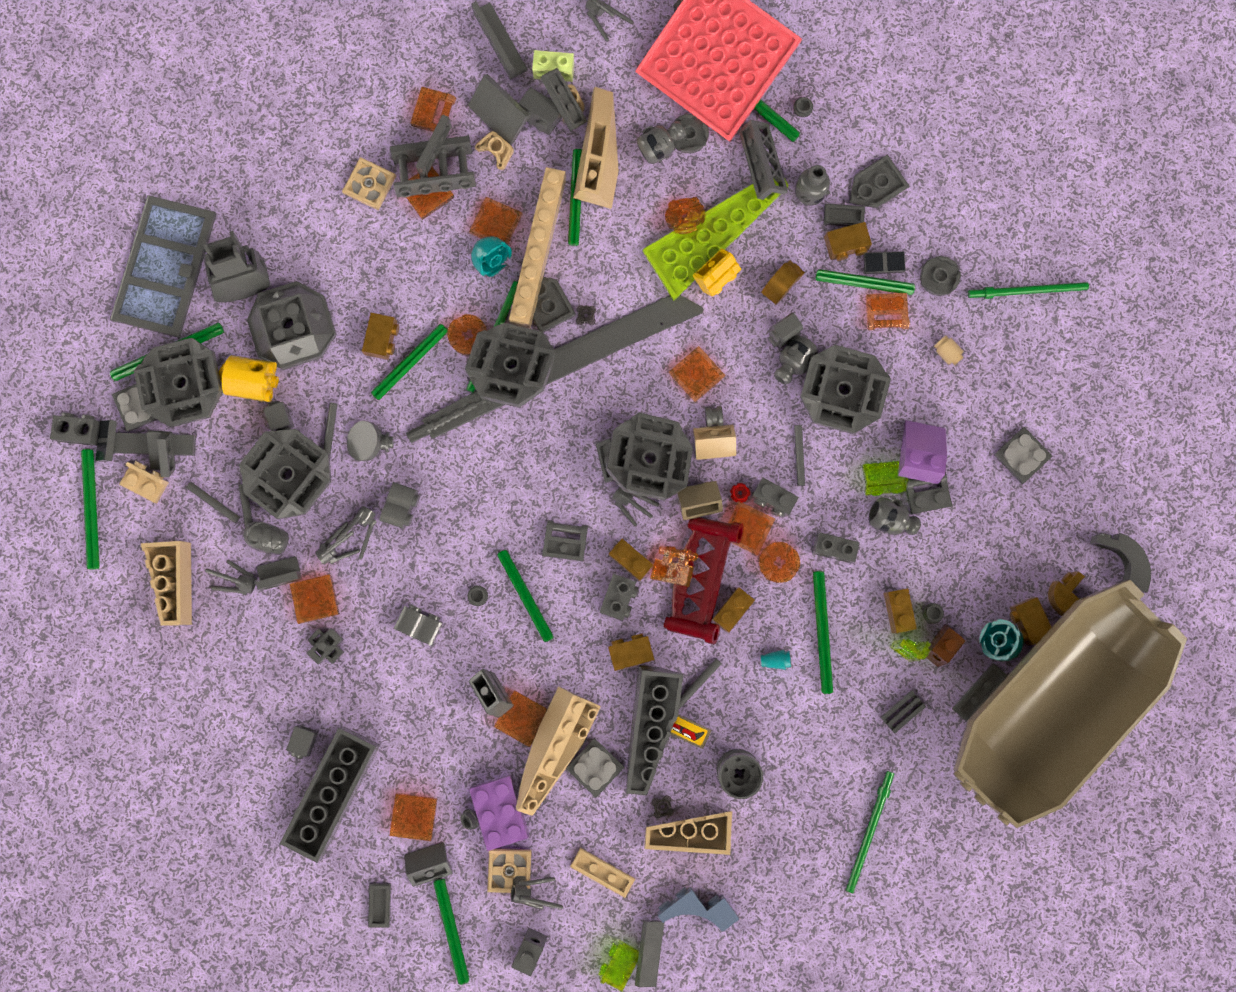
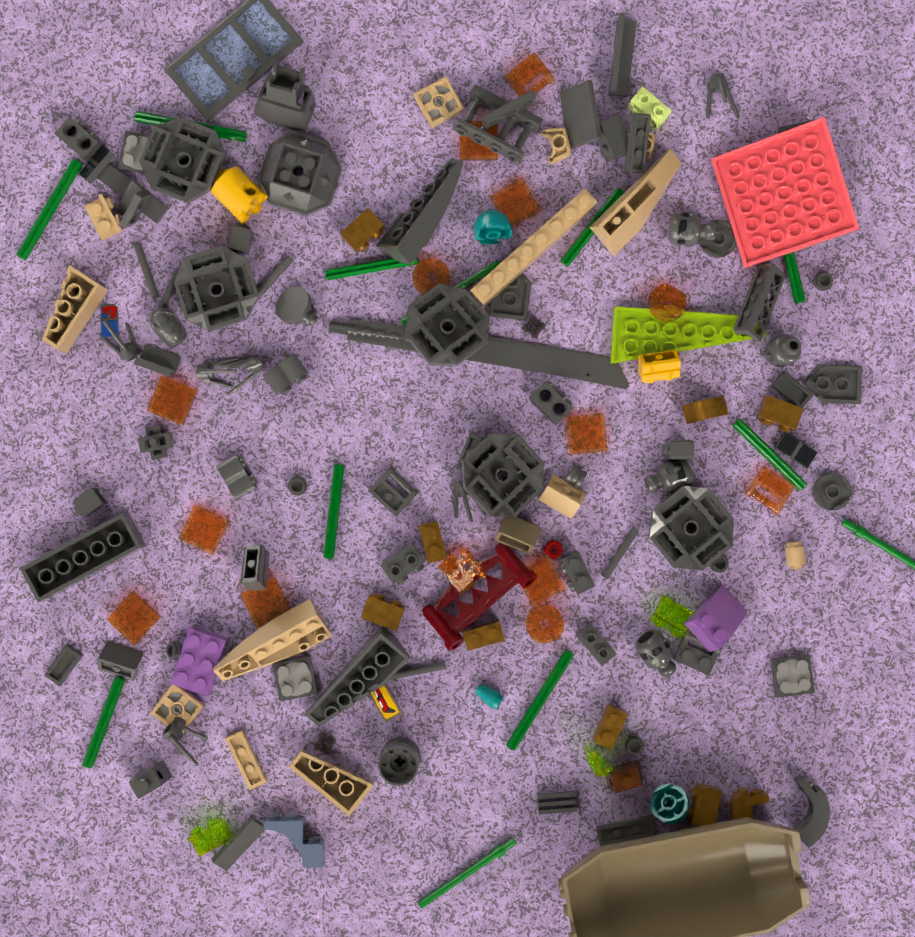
camera: 30 degrees right, 5 degrees up
(206, 561) = (109, 313): none -> sticker
(421, 693) = (204, 529): none -> clear orange plate
(424, 301) = (414, 228): none -> dark grey wedge
(646, 374) = (547, 407): none -> dark grey brick
(891, 404) = (720, 564): none -> dark grey plate

